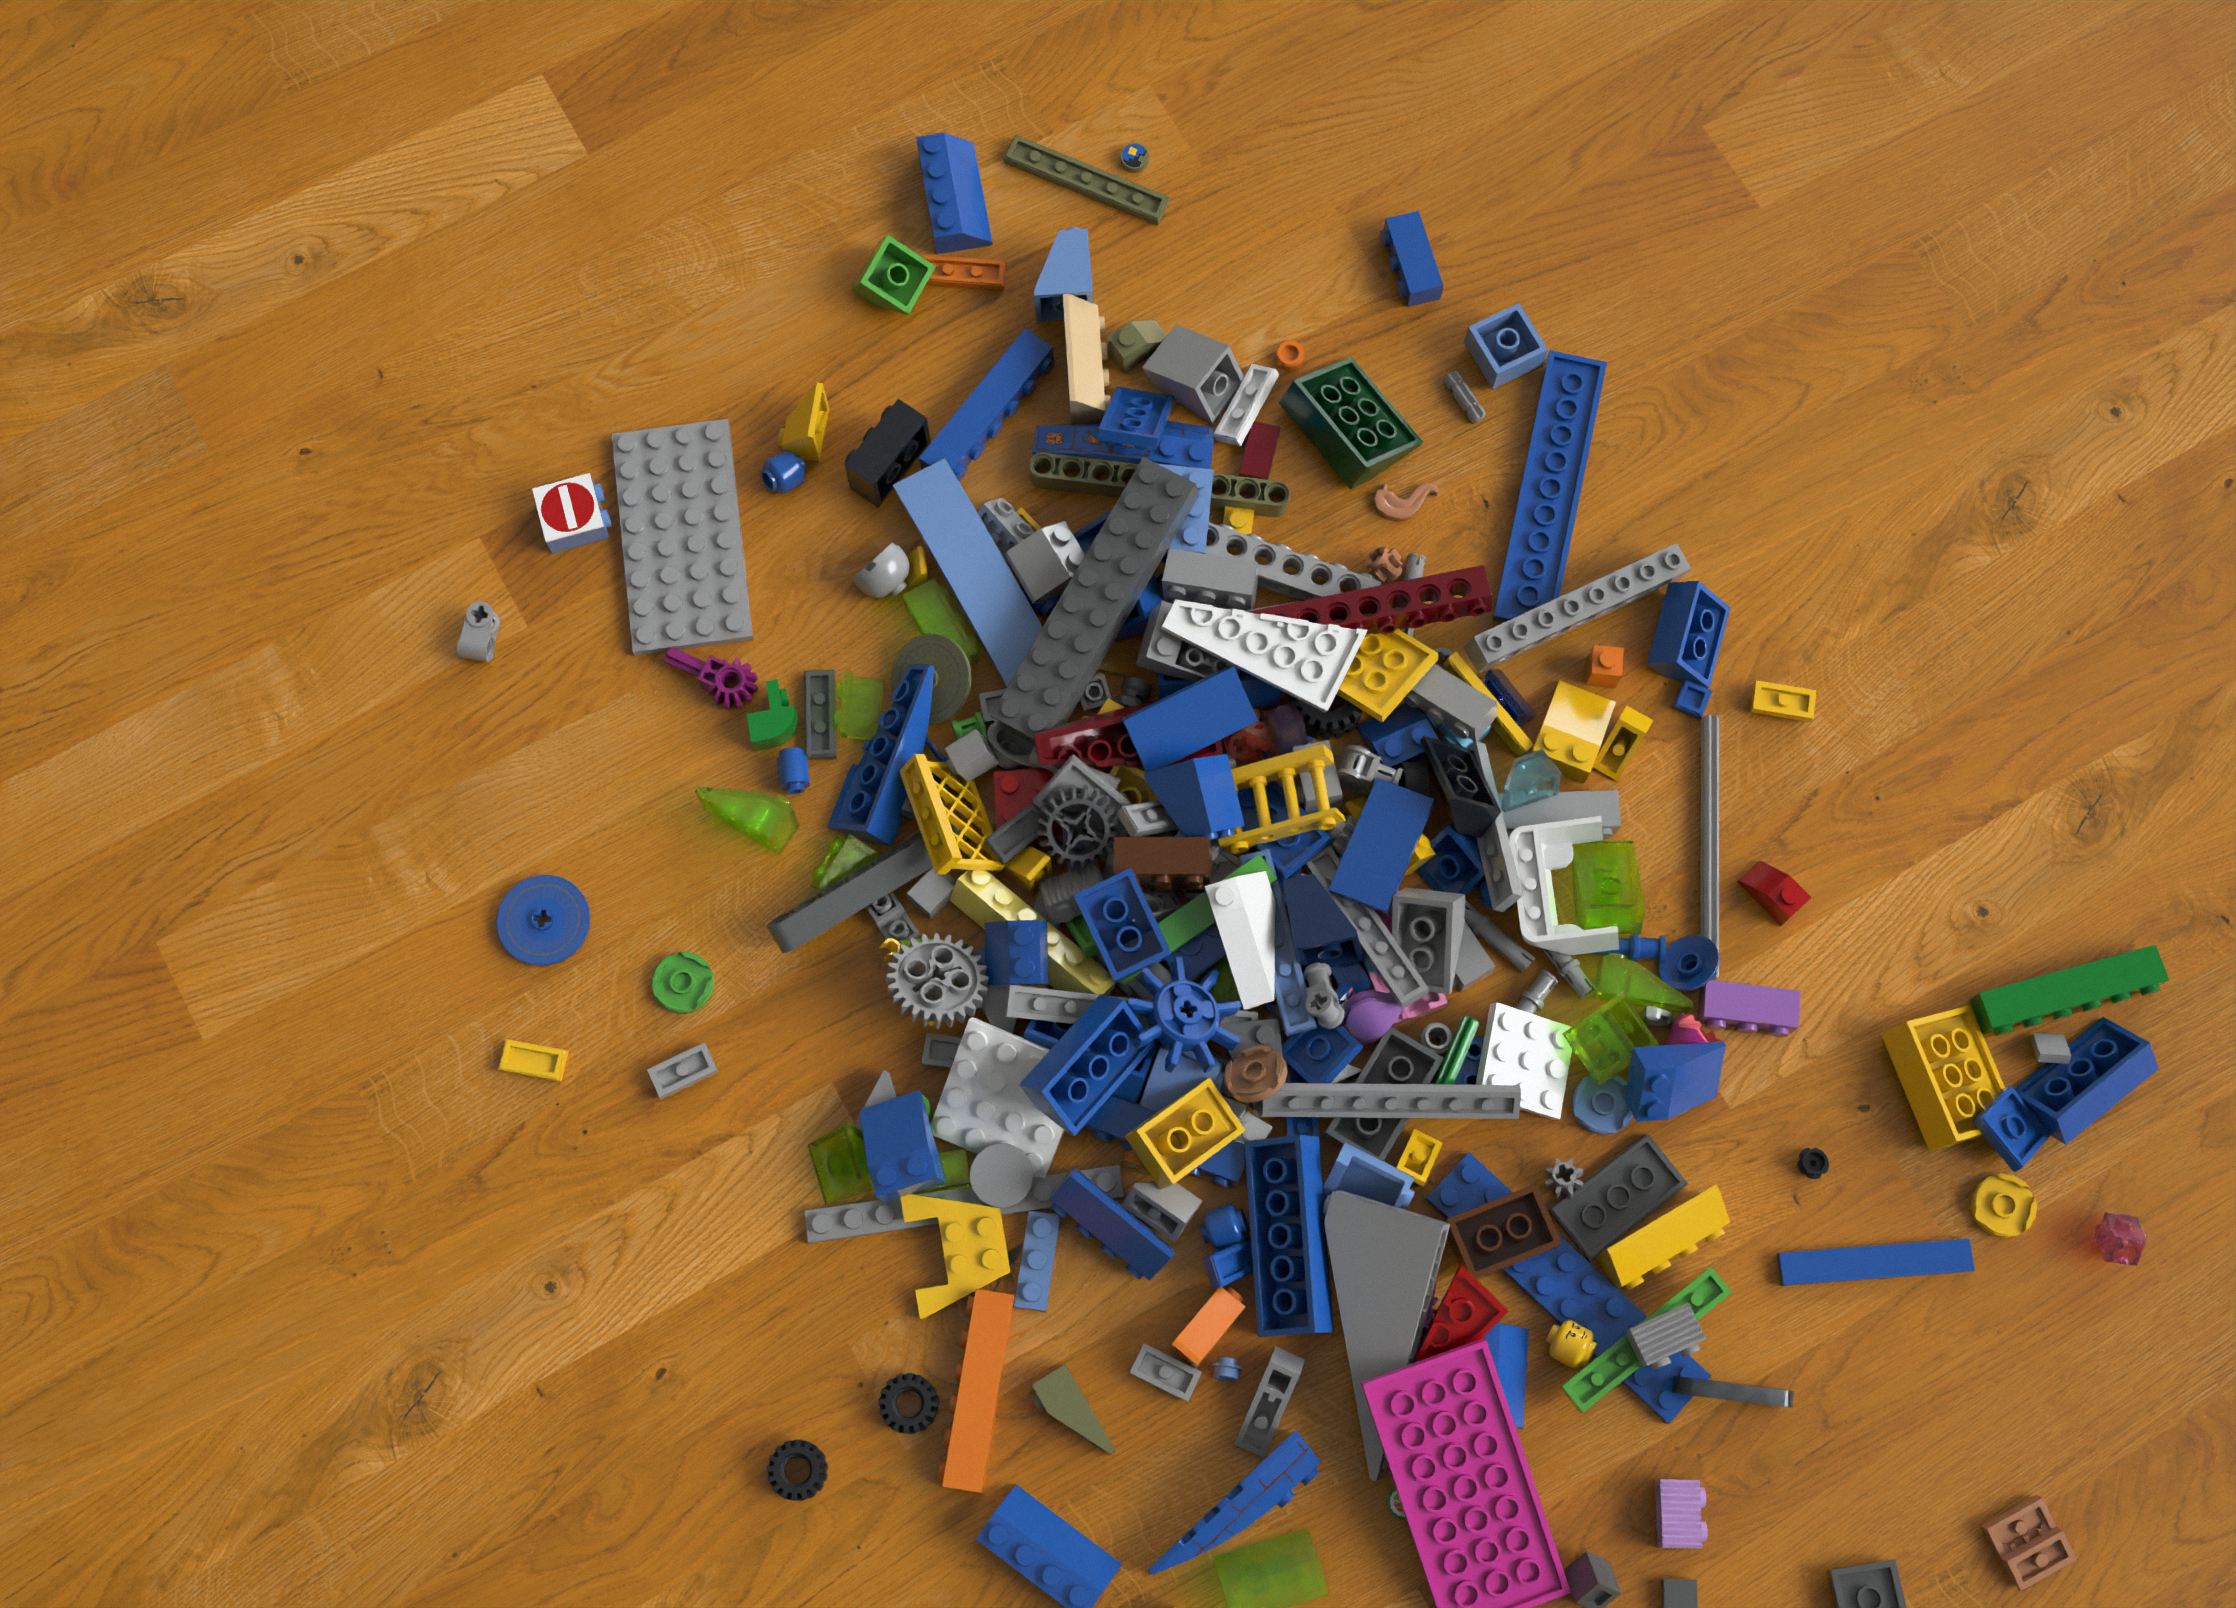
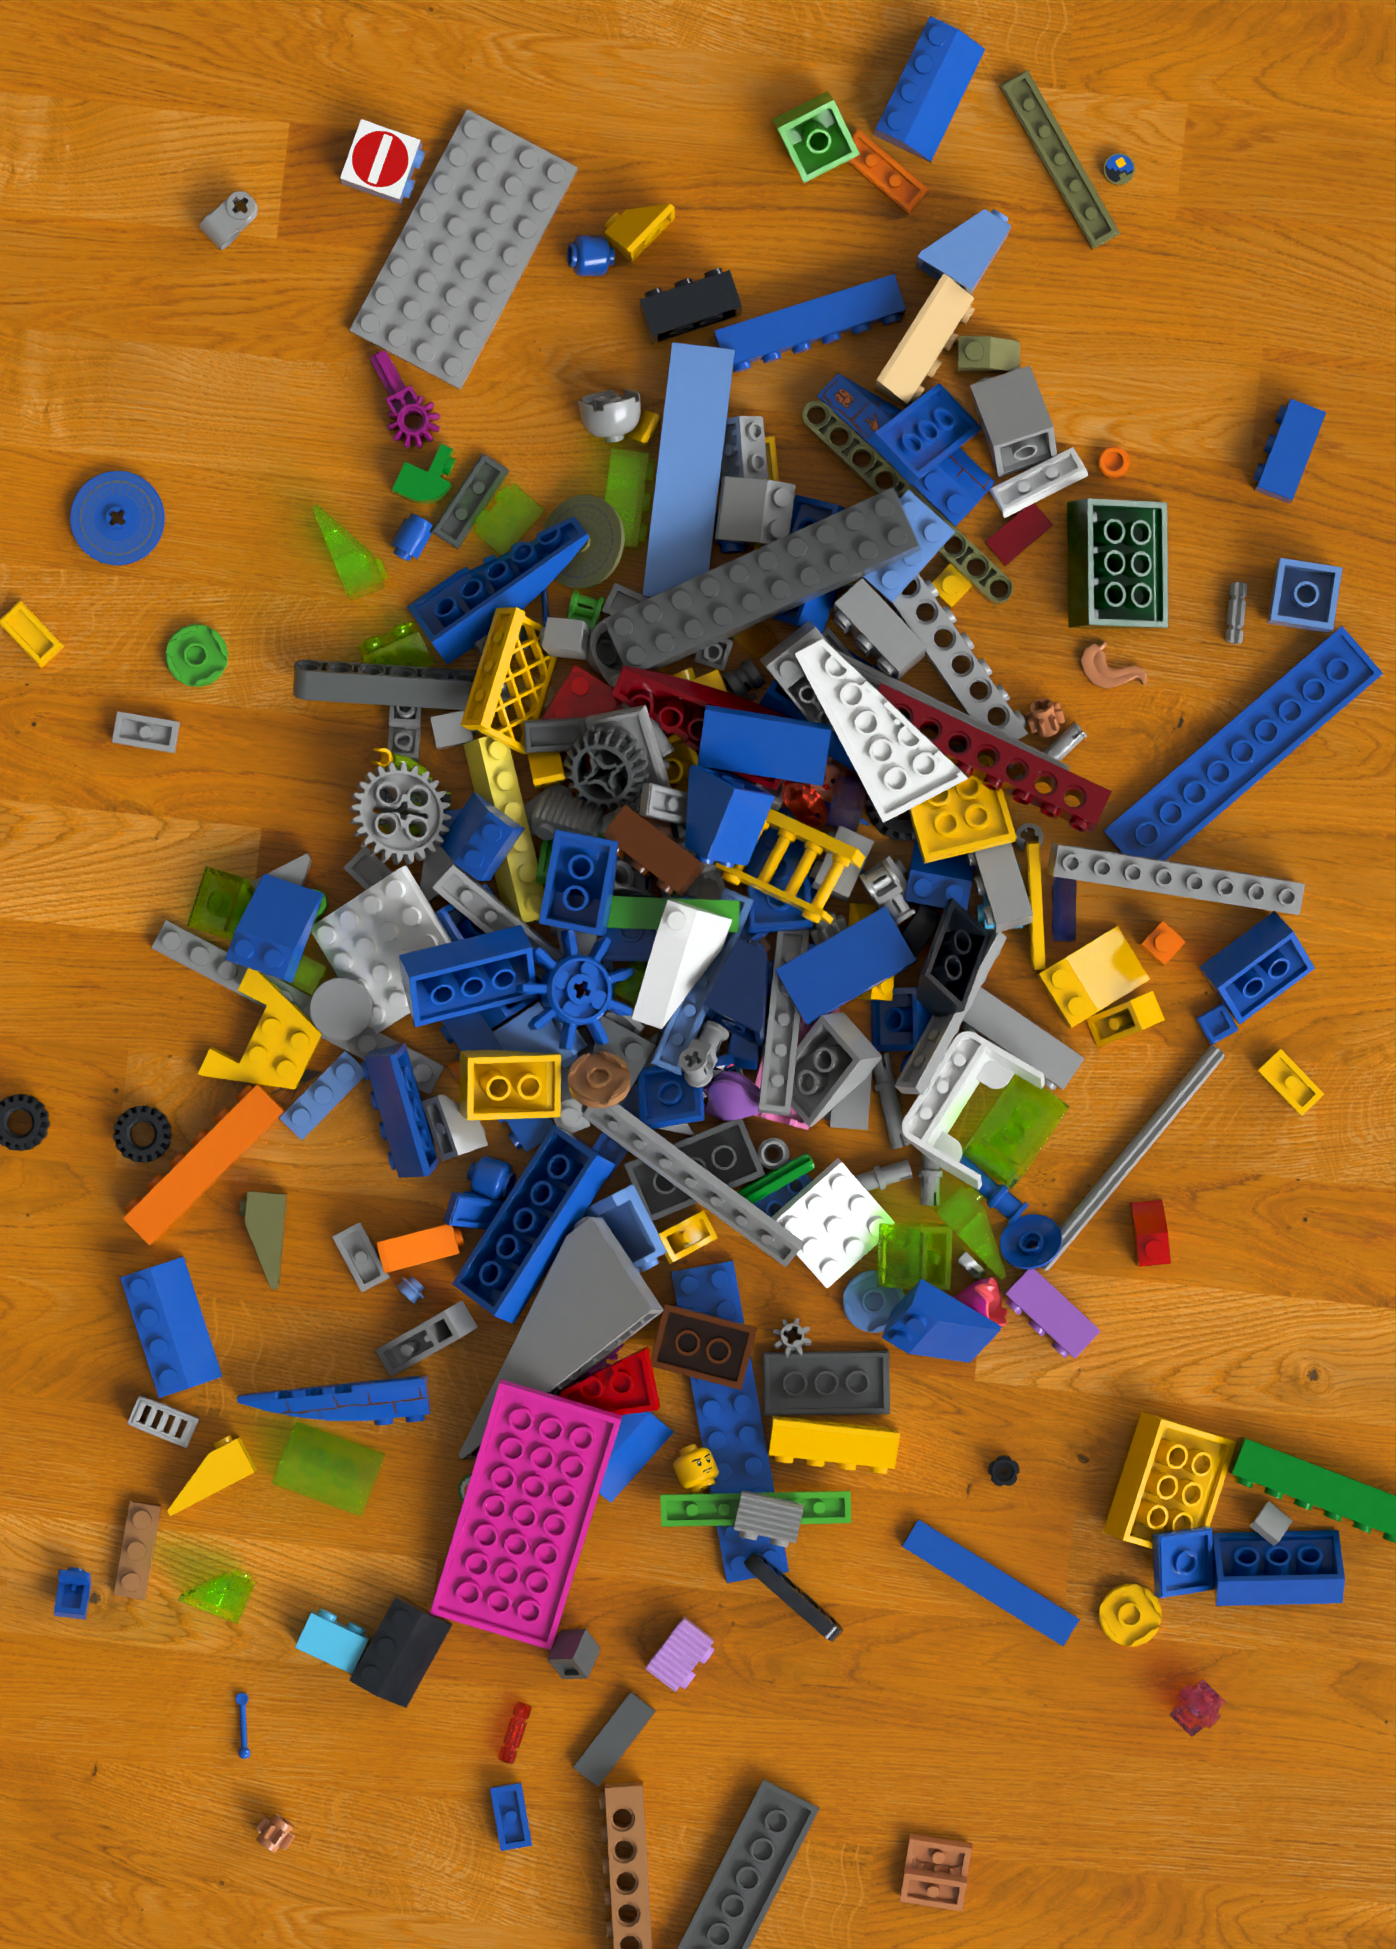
camera: 35 degrees right, 15 degrees up
(1530, 780) = (1014, 998): clear light blue slope -> none

